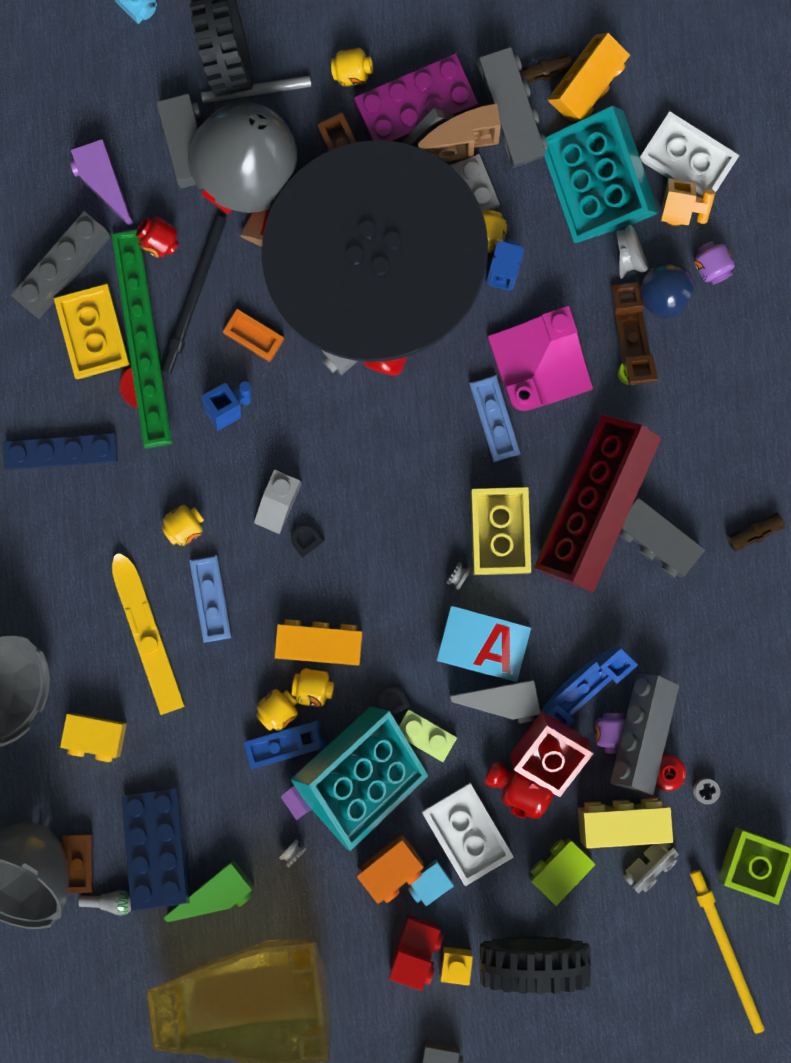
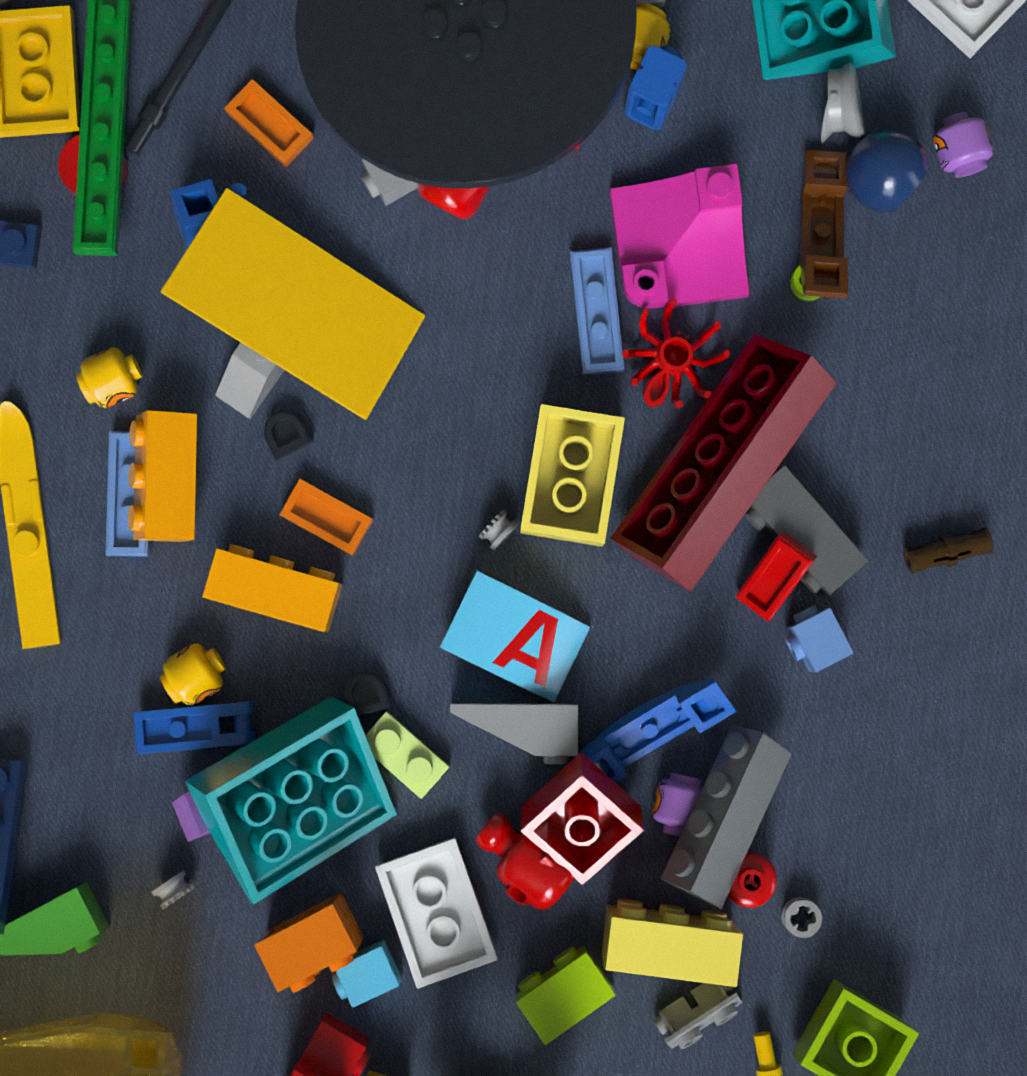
camera: 10 degrees right, 0 degrees up
(232, 583) = (163, 476): none -> light orange brick
(297, 454) = (293, 303): none -> yellow piece
(312, 687) = (250, 651): yellow head -> none
(343, 589) = (326, 517): none -> orange tile
(550, 440) = (672, 357): none -> red animal
(646, 571) = (776, 576): none -> red tile
(681, 201) = (933, 44): light orange brick -> none
(681, 607) = (817, 639): none -> medium blue brick

